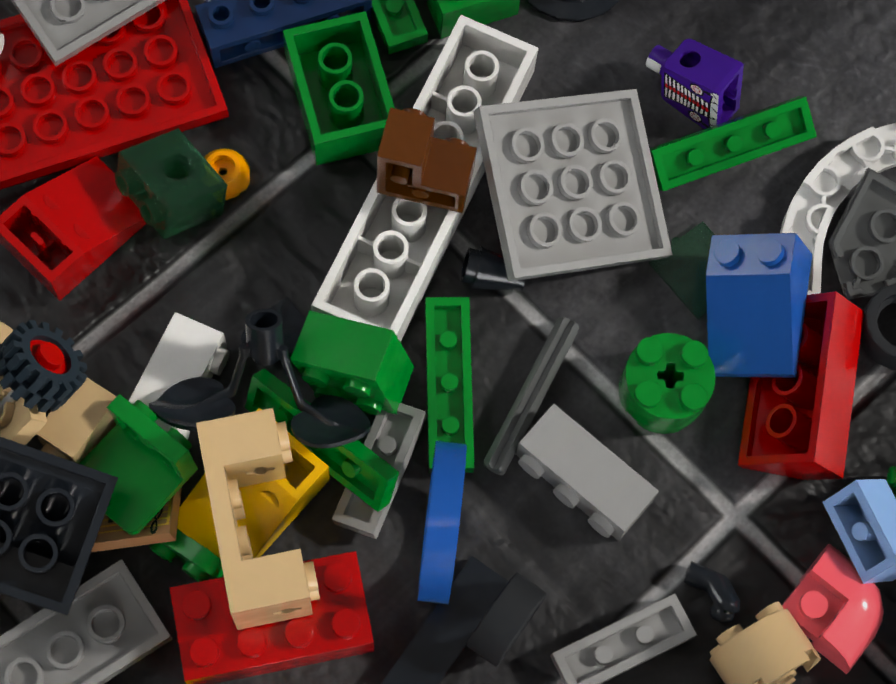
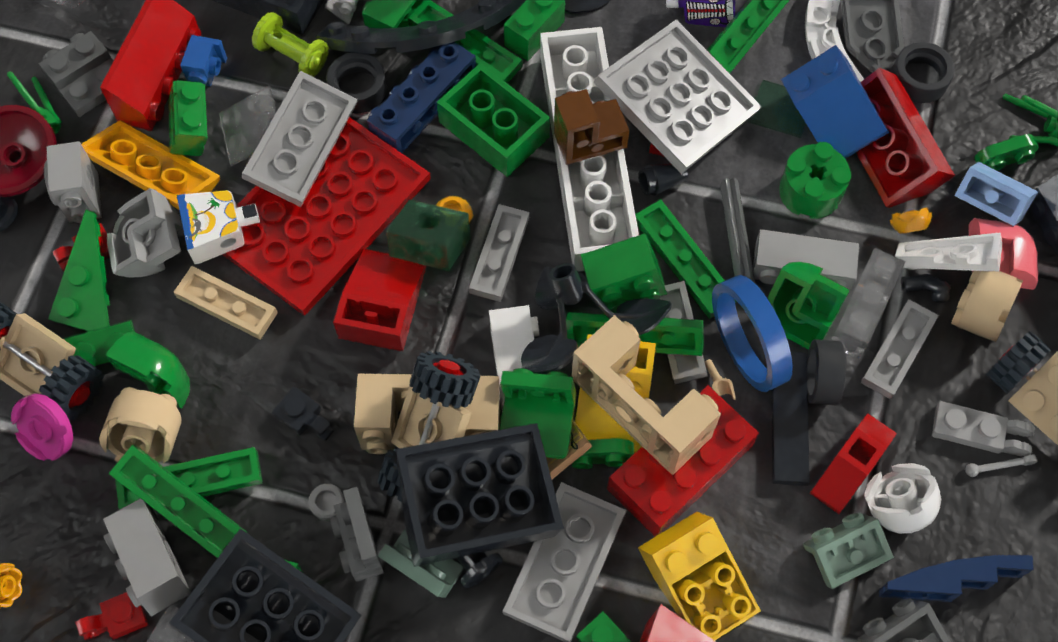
camera: 25 degrees left, 5 degrees down
(242, 250) = (499, 253): none -> light grey plate
(382, 558) = (720, 385): none -> tan hand
(543, 523) = (806, 302): none -> green brick
(620, 566) = (868, 302): none -> clear arch
(749, 501) = (911, 220): none -> light orange plate
(763, 575) = (954, 253): none -> white wing

